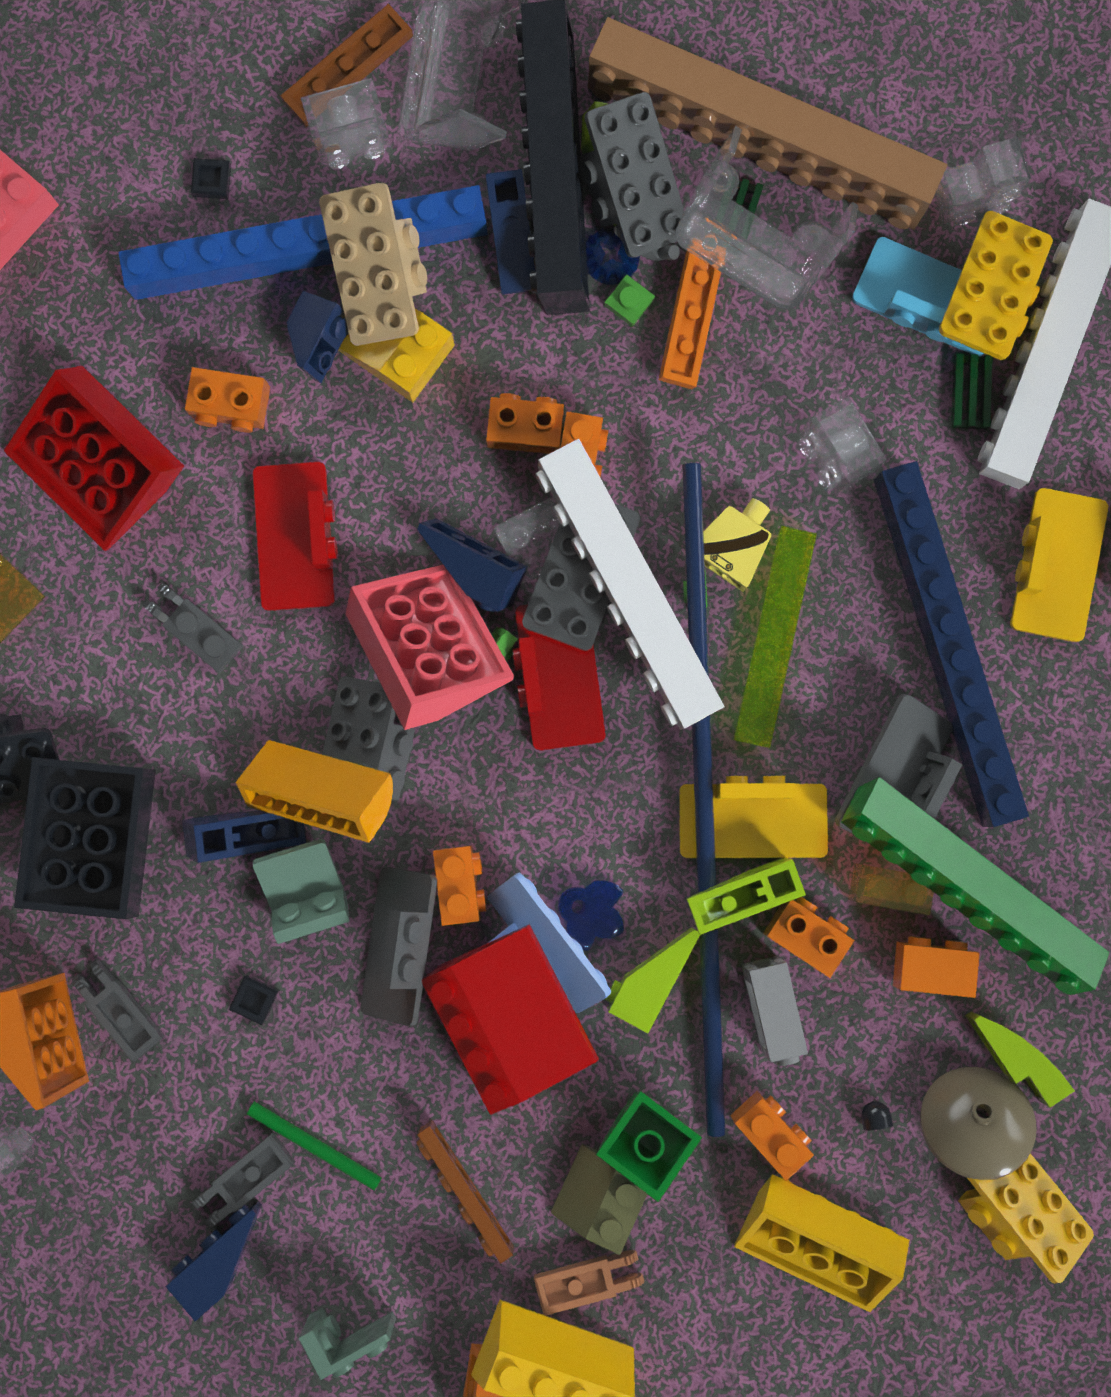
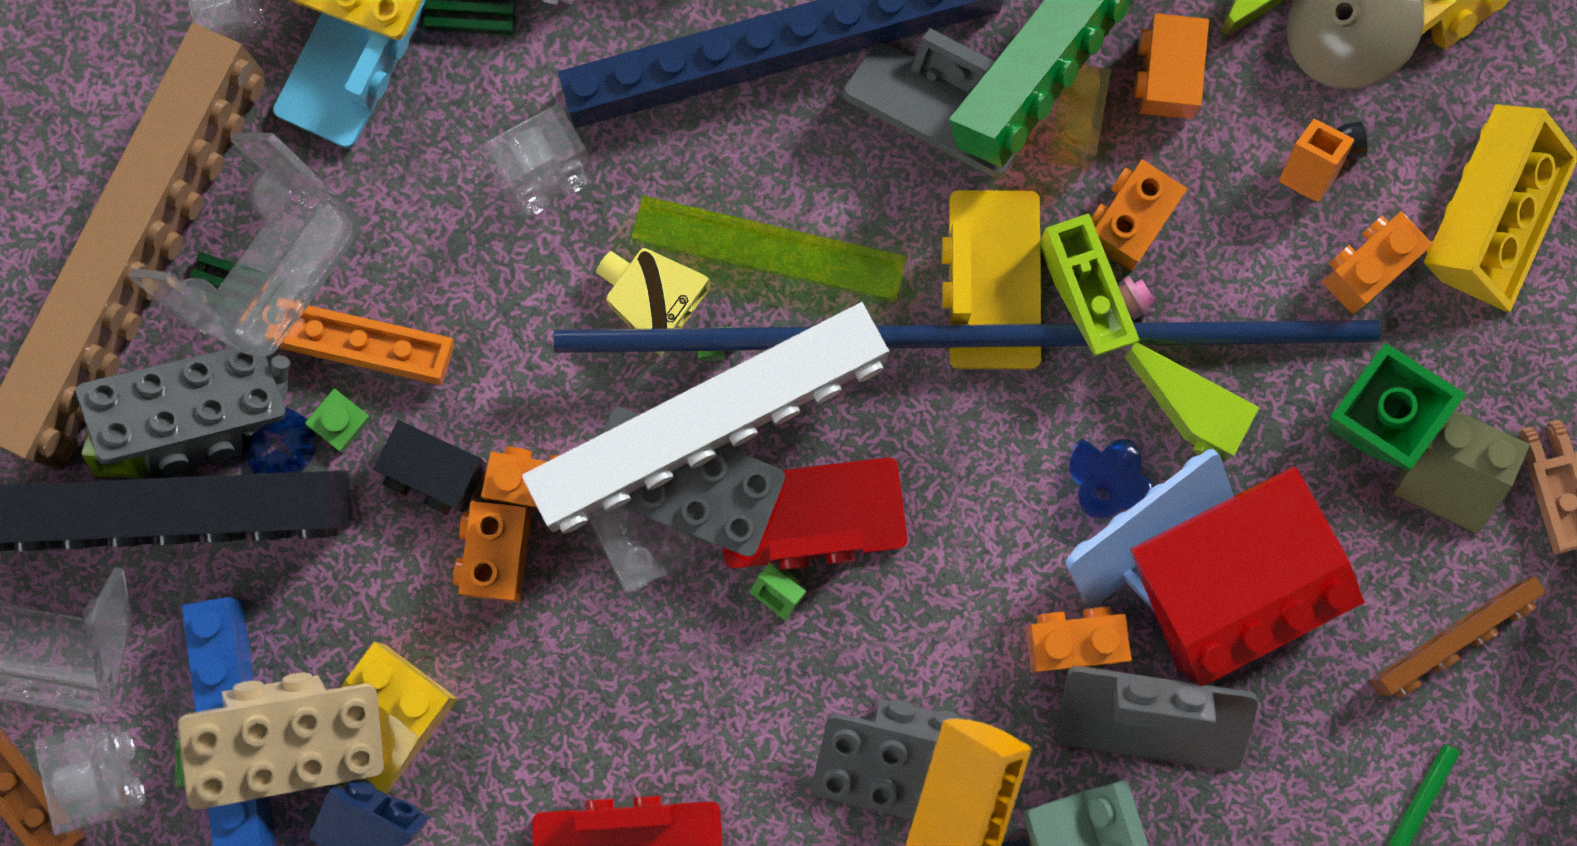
camera: 85 degrees left, 5 degrees down
(426, 644) = (773, 678): coral slope -> none
(476, 567) = (675, 615): dark blue slope -> none
(510, 230) = (242, 567): dark blue slope -> none
(591, 372) = (429, 467): none -> black brick
(739, 935) = (1136, 297): none -> bright pink plate
(774, 1010) = (1227, 254): light grey window -> none
(857, 1086) = (1310, 168): none -> orange brick

